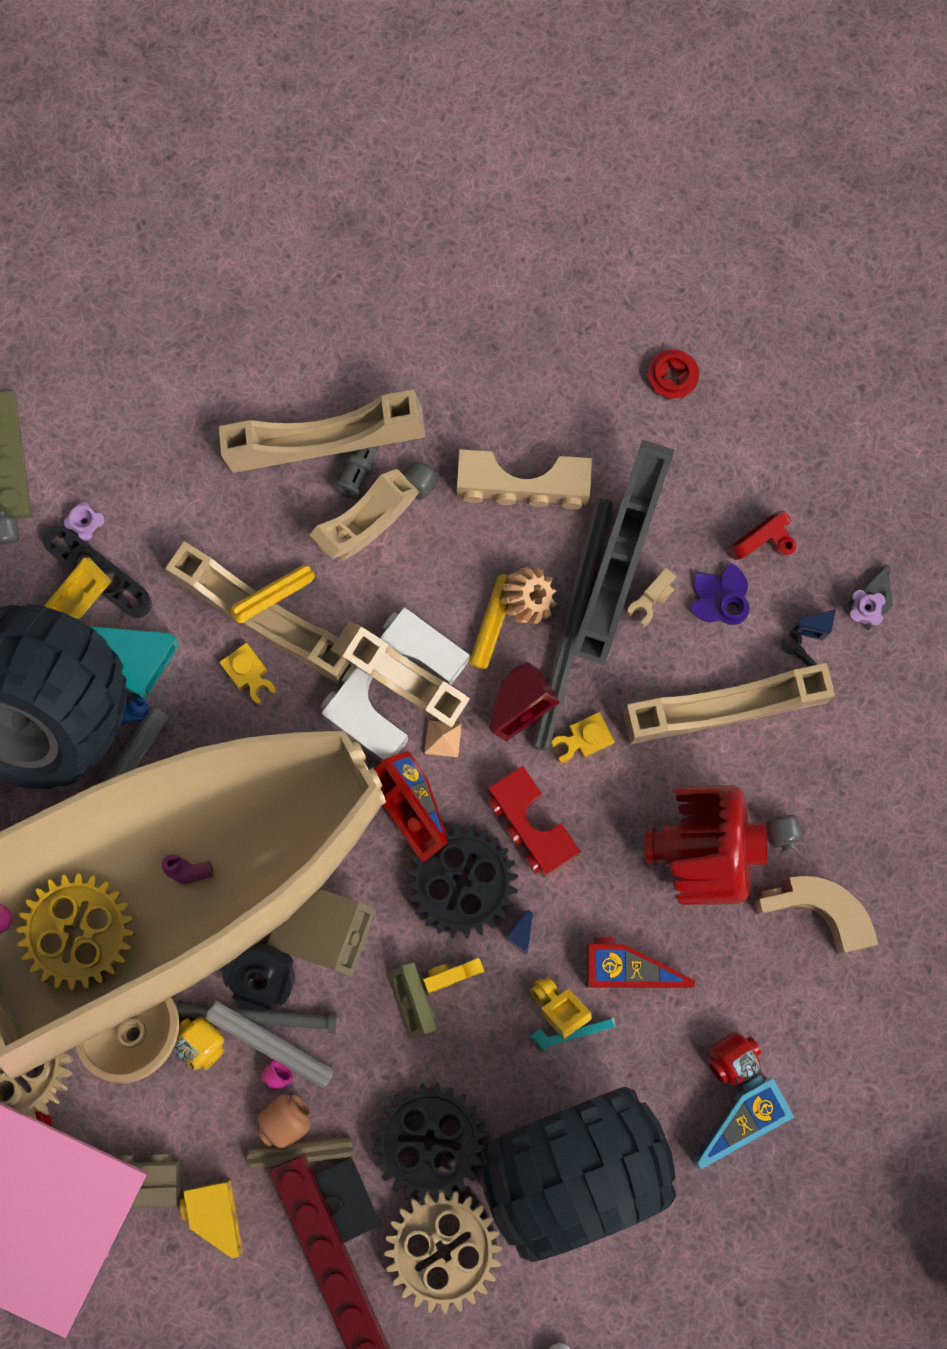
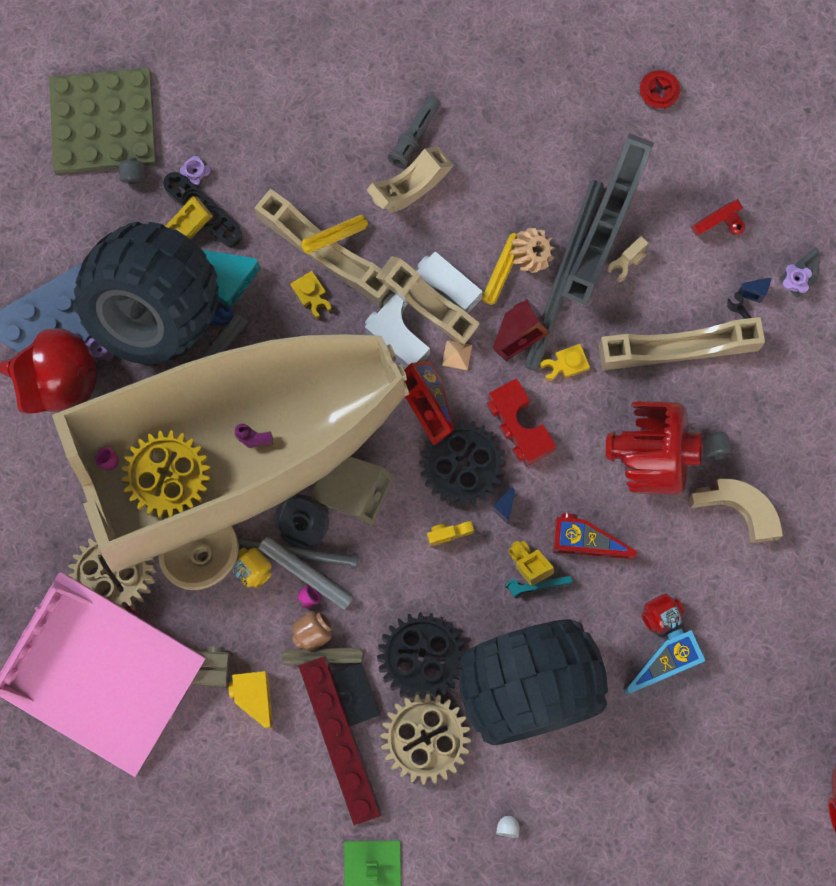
camera: 15 degrees right, 0 degrees up
(264, 444) = (428, 109): tan arch -> none
(409, 992) = (417, 550): olive plate -> none
(423, 478) = (457, 155): dark grey piece -> none
(563, 484) = (566, 167): tan arch -> none
(718, 593) = (680, 260): dark purple plate -> none

